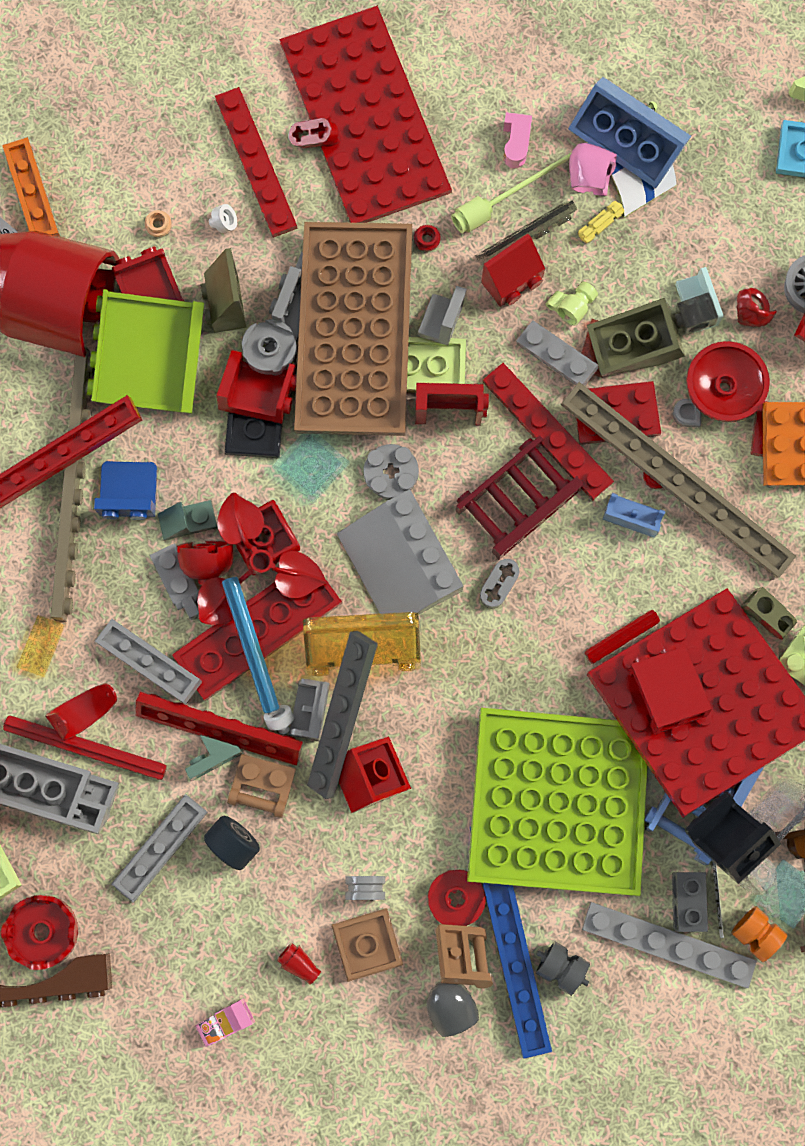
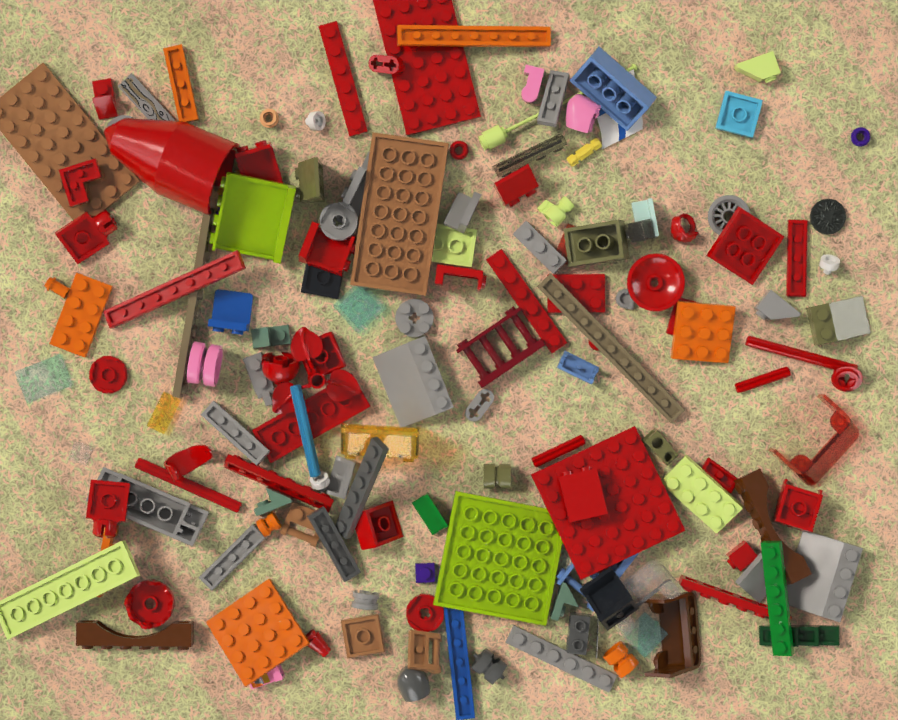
camera: 10 degrees right, 10 degrees up
(94, 564) = (204, 364): none -> bright pink wheel
(208, 958) = (257, 632): none -> orange plate
(214, 786) = (268, 524): none -> orange wheel
(231, 843) = (280, 560): black wheel -> none
(309, 808) = (333, 544): none -> dark grey plate
(429, 83) = (473, 36): none -> orange plate
(447, 748) = (430, 513): none -> green panel
(449, 838) = (425, 572): none -> dark purple plate
(538, 681) = (497, 476): none -> olive wheel
(549, 154) = (553, 98): none -> light grey plate
(660, 847) = (563, 596): none -> sand green slope

